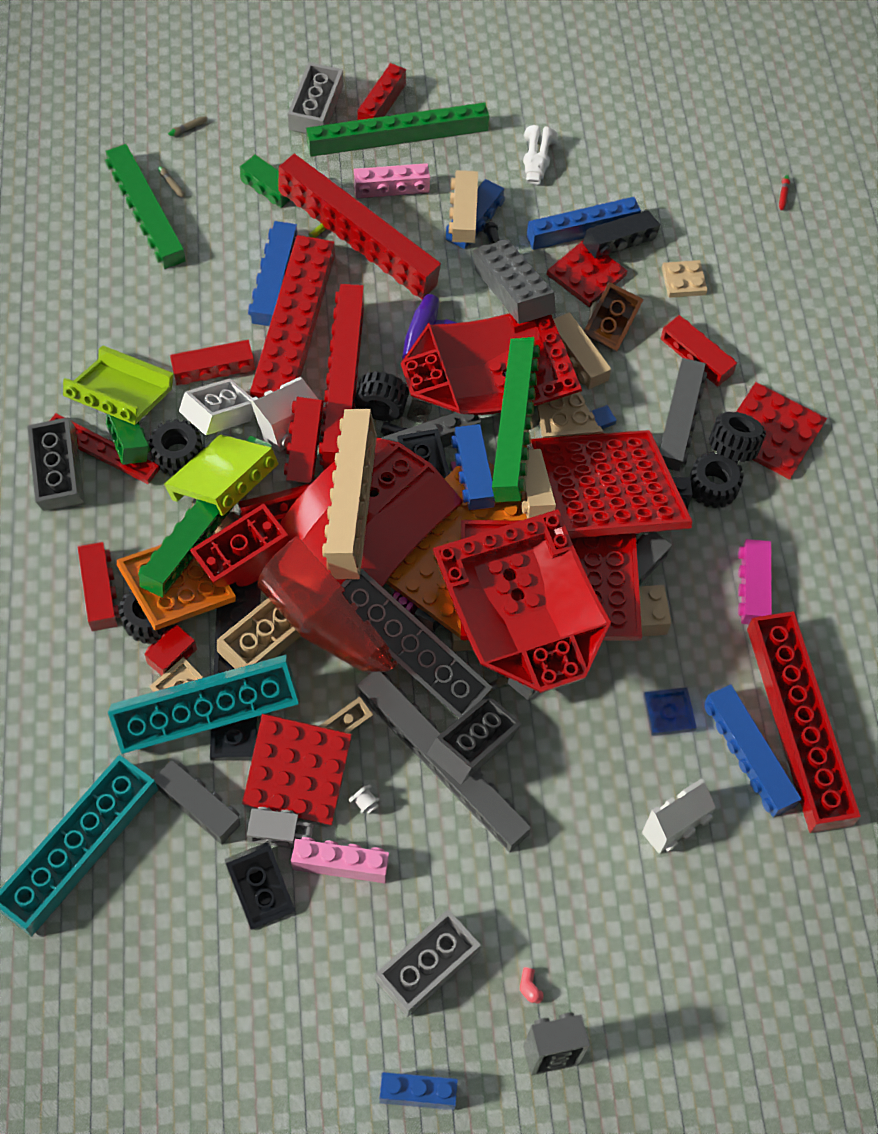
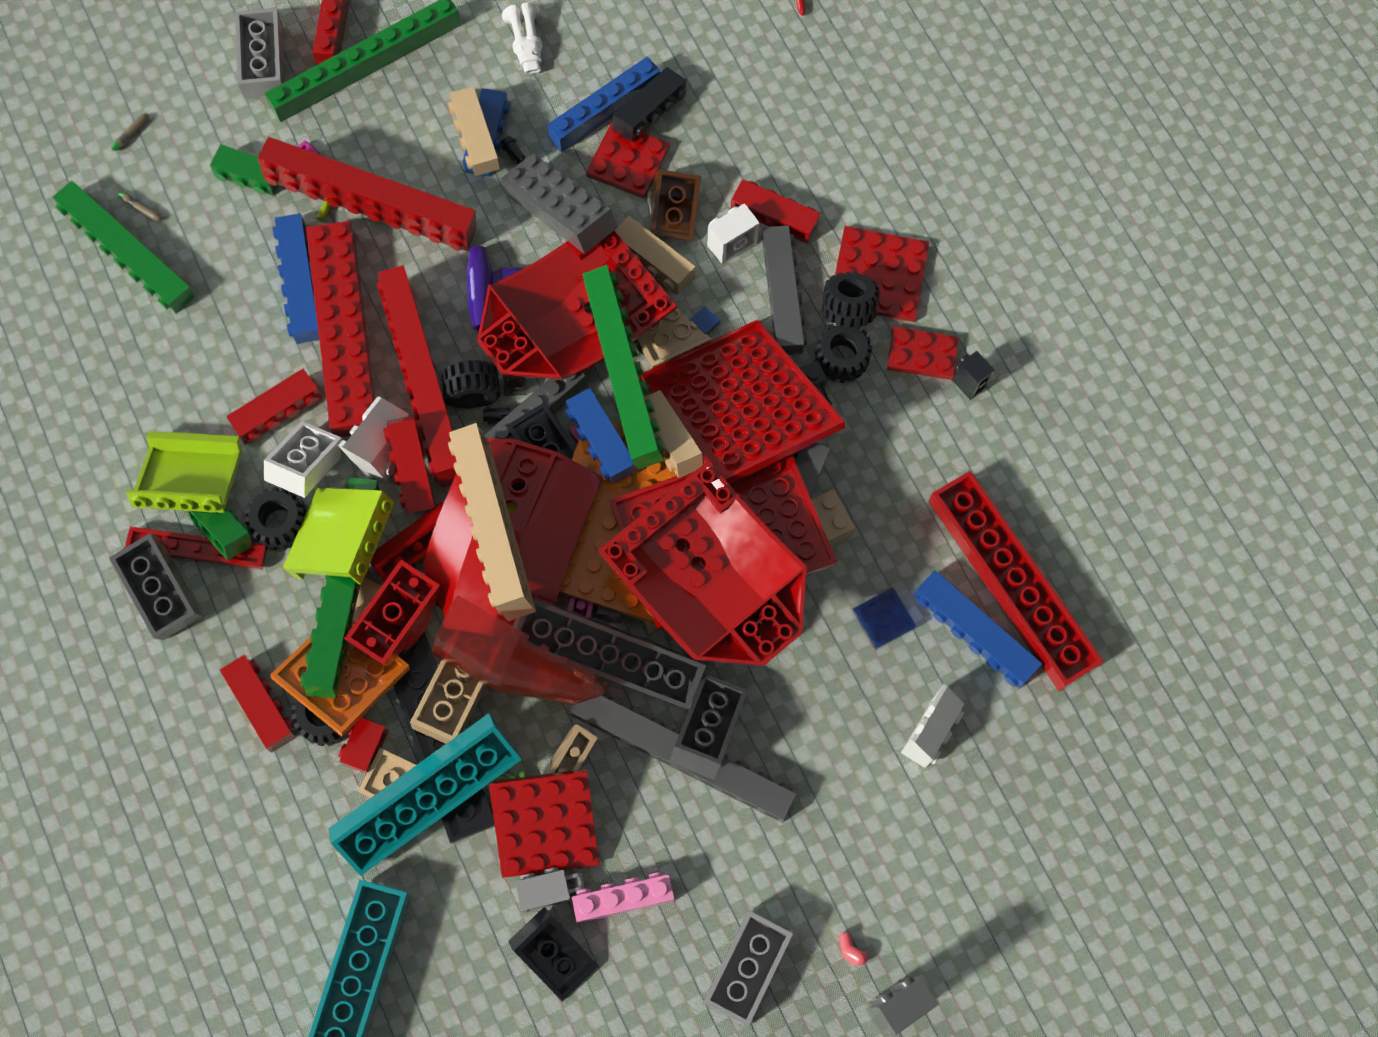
camera: 20 degrees left, 10 degrees up
(197, 801) = (456, 893): dark grey brick -> none
(365, 800) = (623, 826): white brick -> none
(391, 180) = (381, 123): bright pink brick -> none
(654, 354) = (732, 233): none -> white brick
(684, 278) = (731, 131): tan plate -> none
(755, 580) = (920, 448): dark pink brick -> none
(787, 506) = (922, 353): none -> red plate
(826, 535) = (973, 374): none -> black brick

